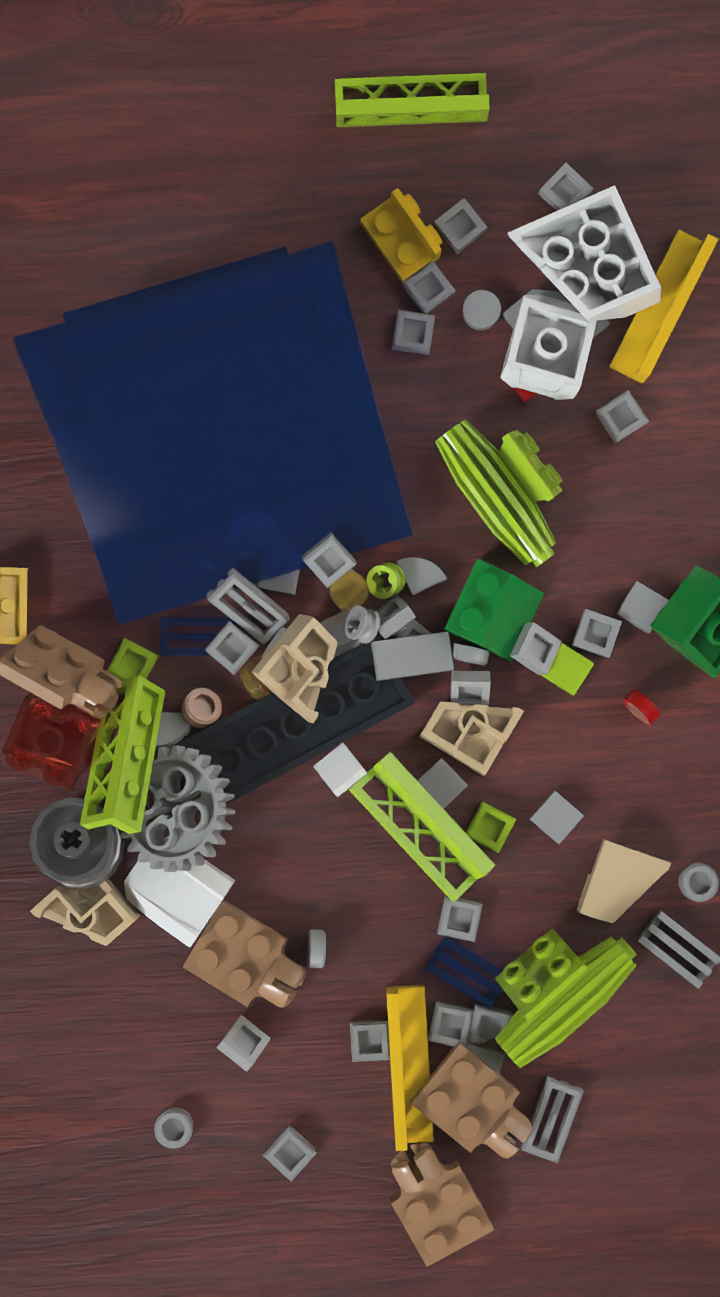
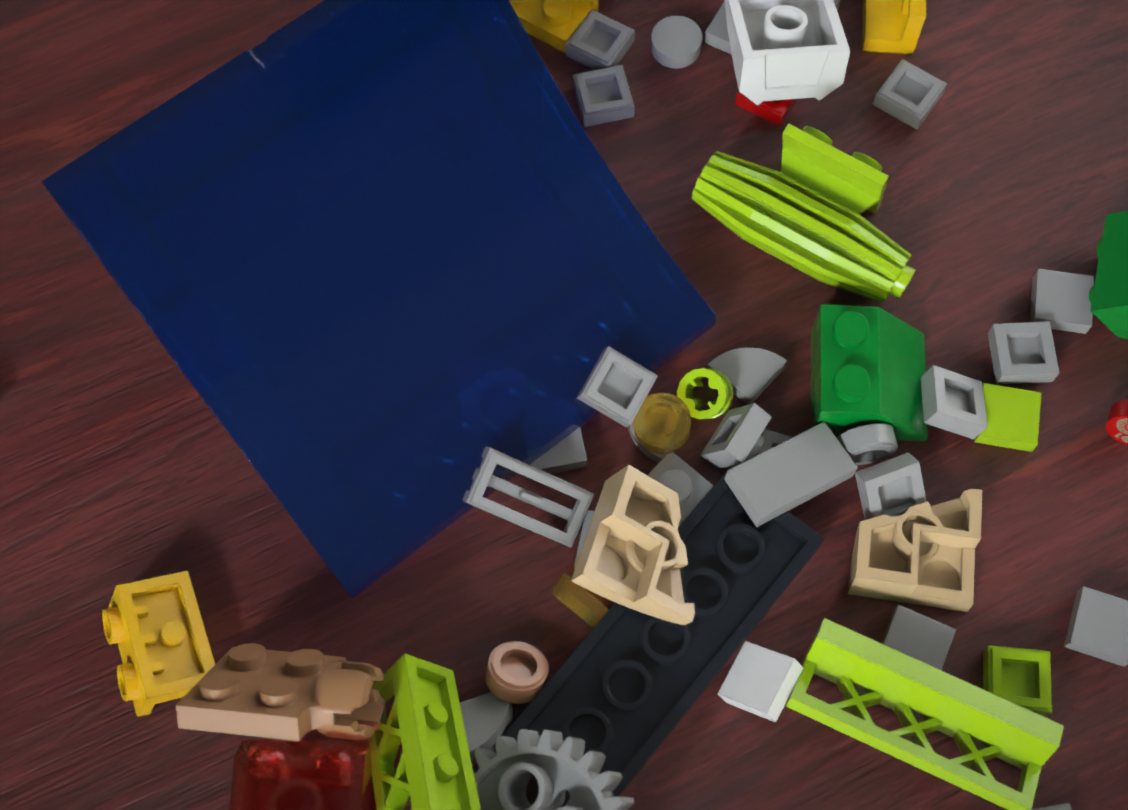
camera: 15 degrees left, 20 degrees down
(132, 661) = (388, 639): lime tile -> none
(165, 636) = (482, 594): clear blue tile -> none
(232, 648) = (528, 565): light grey tile -> none
(362, 624) = (701, 455): light grey bush -> none

